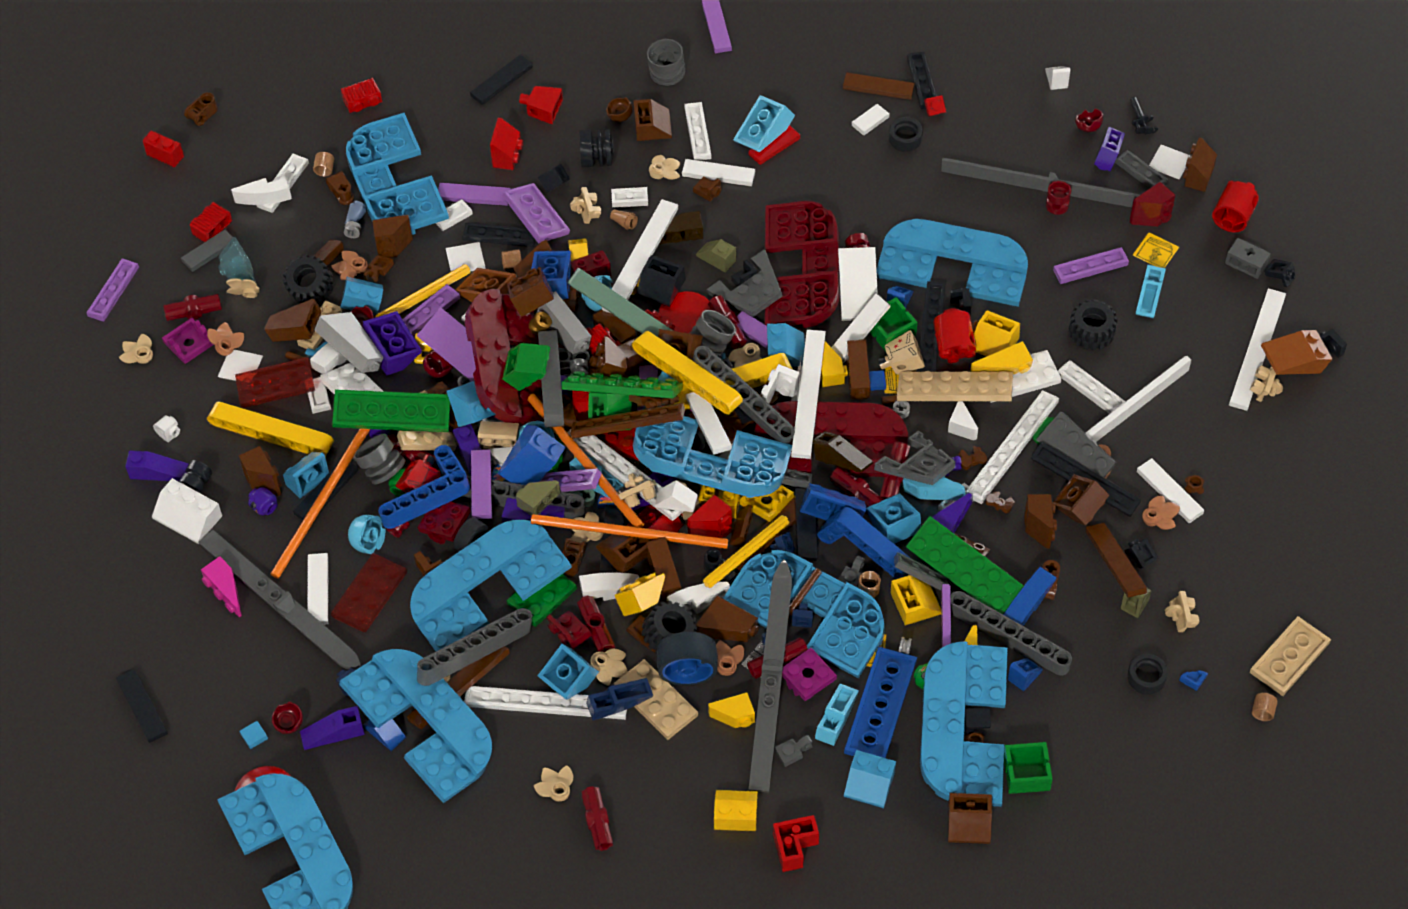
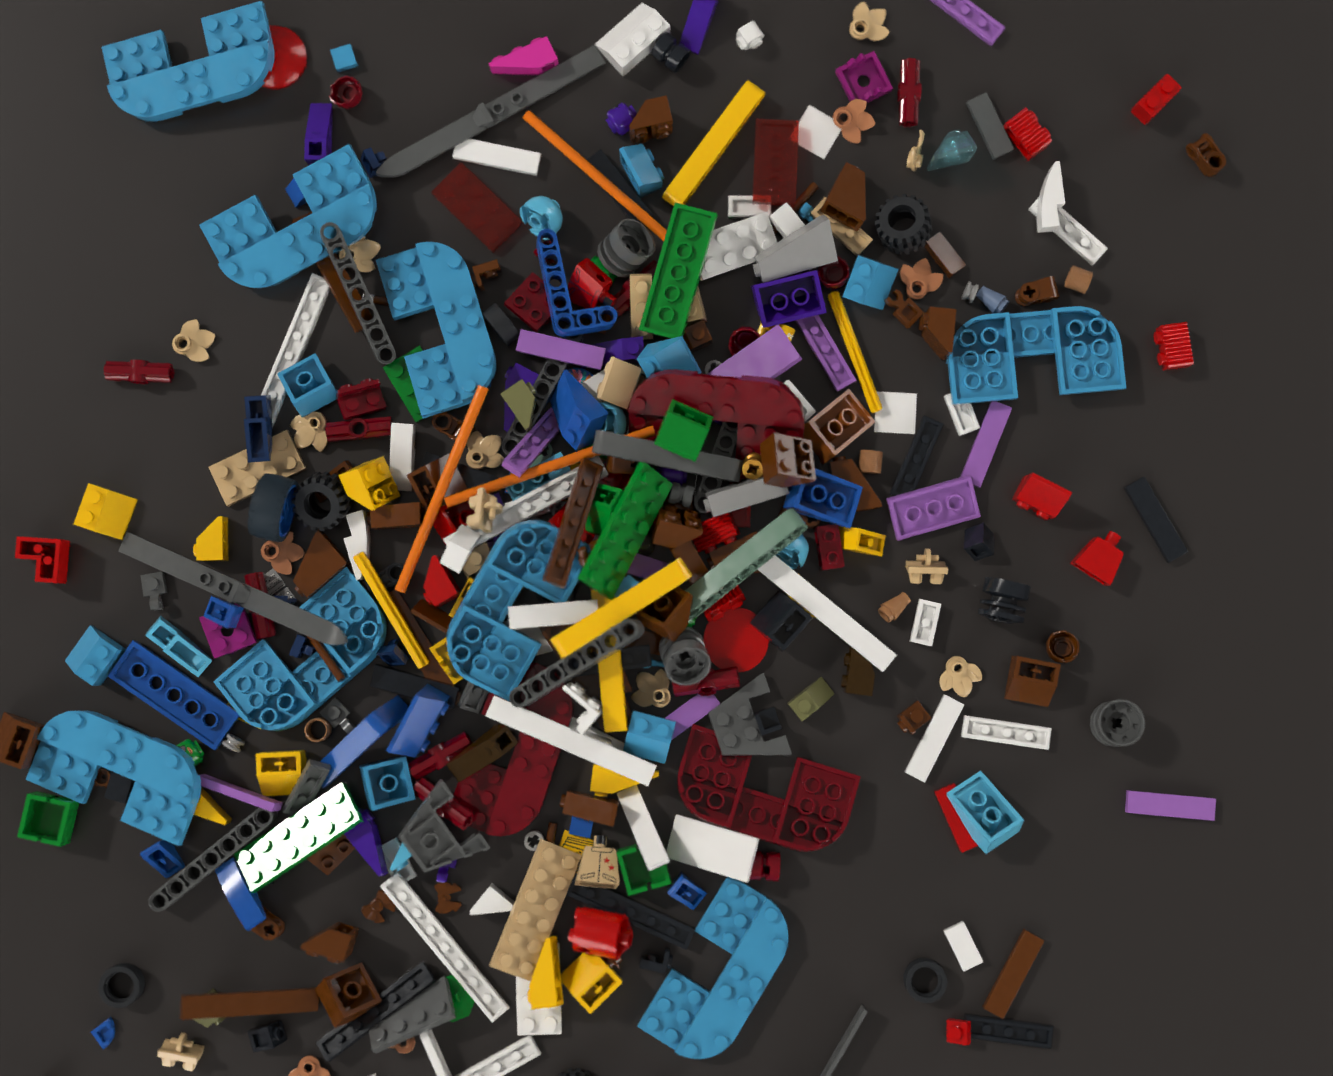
camera: 105 degrees right, 30 degrees up
(793, 668) = (223, 612): none -> blue slope

